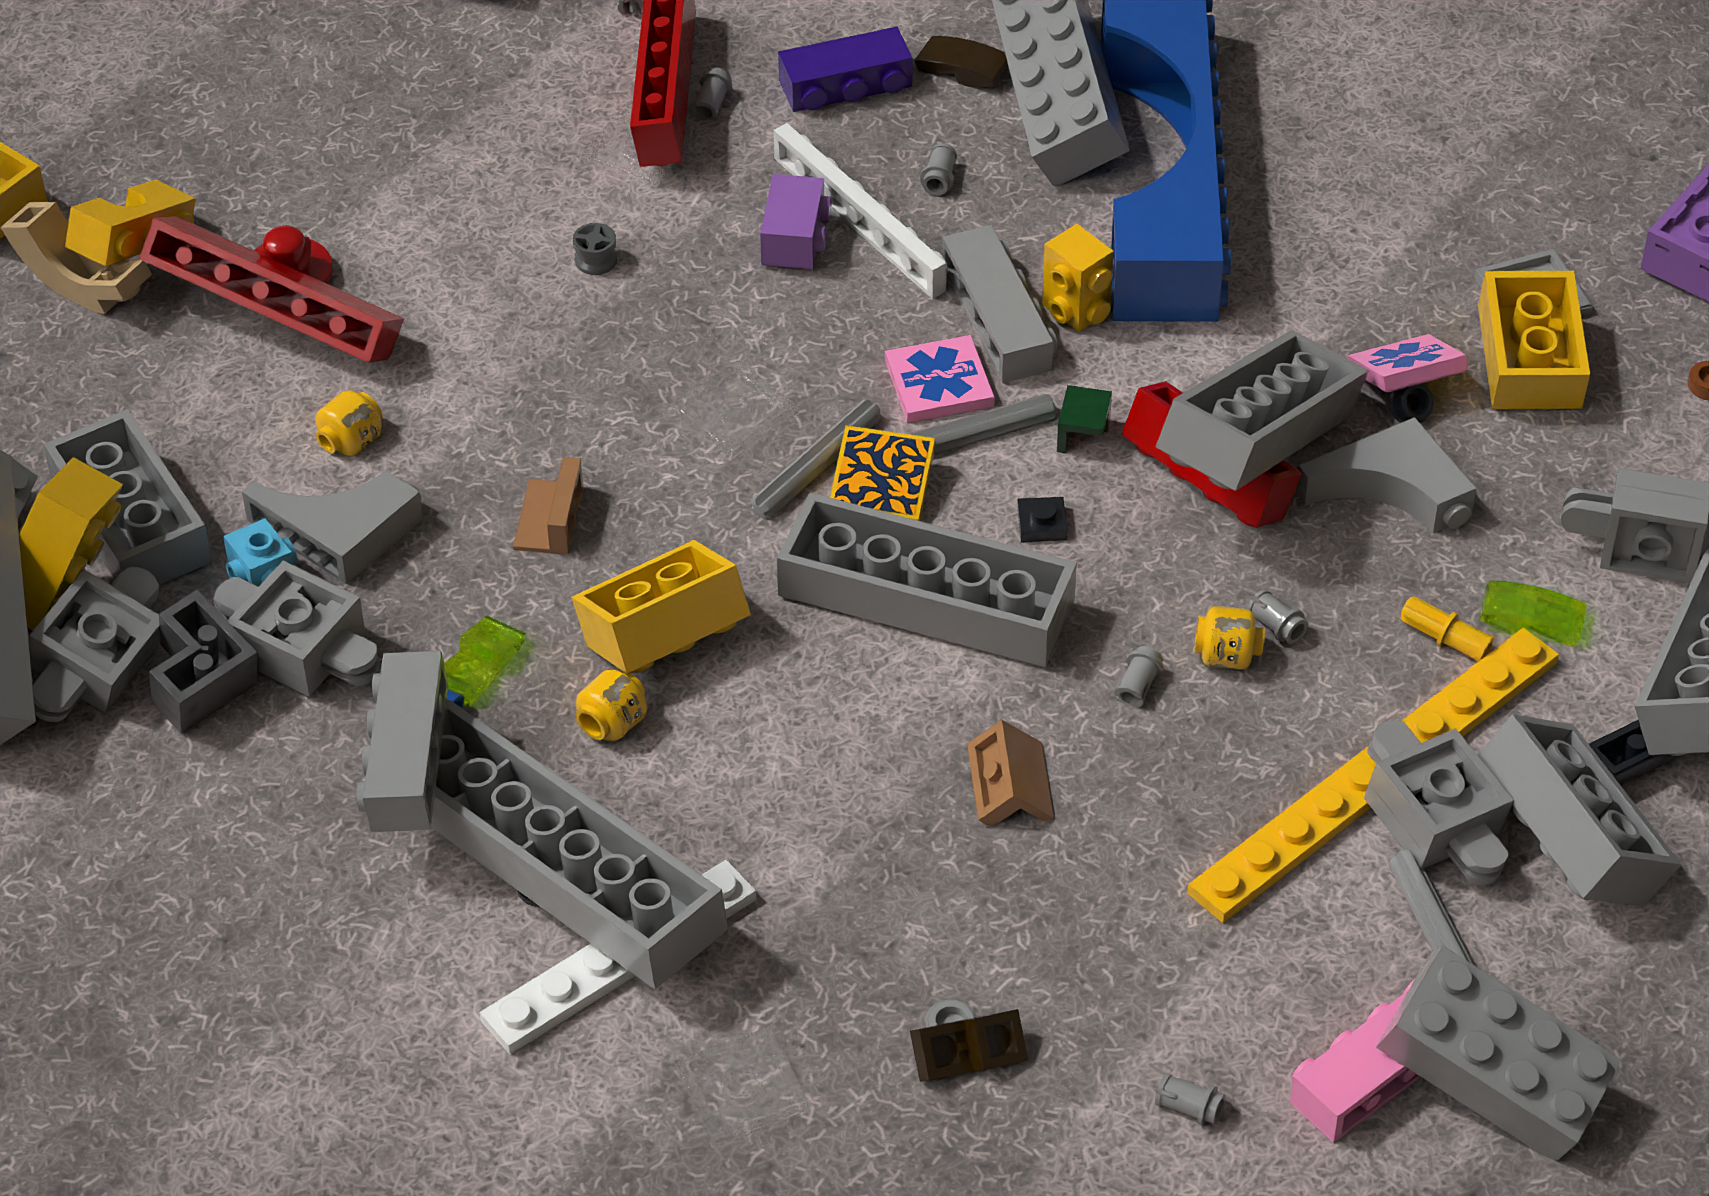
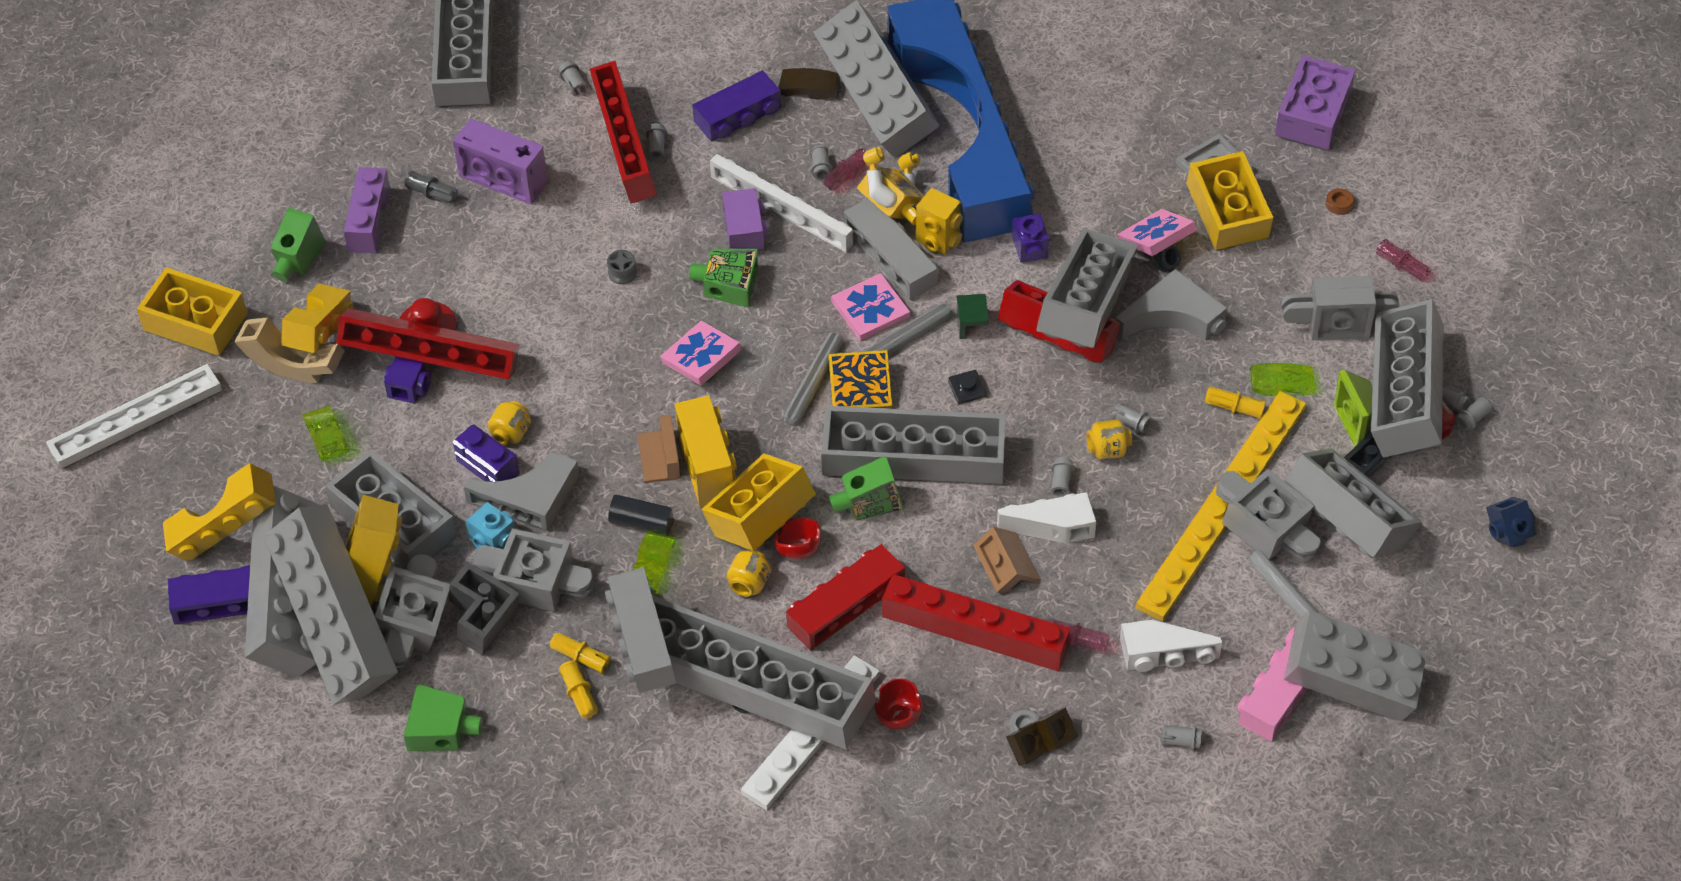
camera: 15 degrees left, 5 degrees up
(74, 808) = (438, 721): none -> bright green torso
(85, 381) = (325, 433): none -> clear neon green slope
(146, 122) = (296, 244): none -> bright green torso
(227, 334) = (406, 380): none -> dark purple brick
(250, 116) = (363, 218): none -> medium lavender arch
(292, 456) = (485, 456): none -> dark purple brick
(298, 812) = (578, 689): none -> yellow axle
(321, 761) = (580, 652): none -> yellow axle
(369, 90) = (431, 187): none -> dark grey axle
(475, 71) = (500, 161): none -> medium lavender piece
(486, 589) = (640, 515): none -> black brick
(610, 509) = (704, 447): none -> yellow brick
(663, 387) = (701, 353): none -> bright pink tile
(704, 674) = (795, 531): none -> red hair
(743, 772) = (843, 597): none -> red brick
(745, 290) = (728, 275): none -> bright green torso
(764, 933) = (896, 696): none -> red hair
(834, 629) = (868, 491): none -> bright green torso
(928, 854) = (975, 622): none -> red brick
(973, 185) = (845, 170): none -> clear pink axle
(1019, 217) = (891, 188): none -> torso
(1079, 910) = (1084, 636): none -> clear pink axle
(1103, 733) = (1055, 519): none -> white slope
(1204, 953) = (1161, 644): none -> white slope
(1210, 330) = (1030, 238): none -> dark purple brick
(1627, 663) = (1354, 404): none -> lime slope

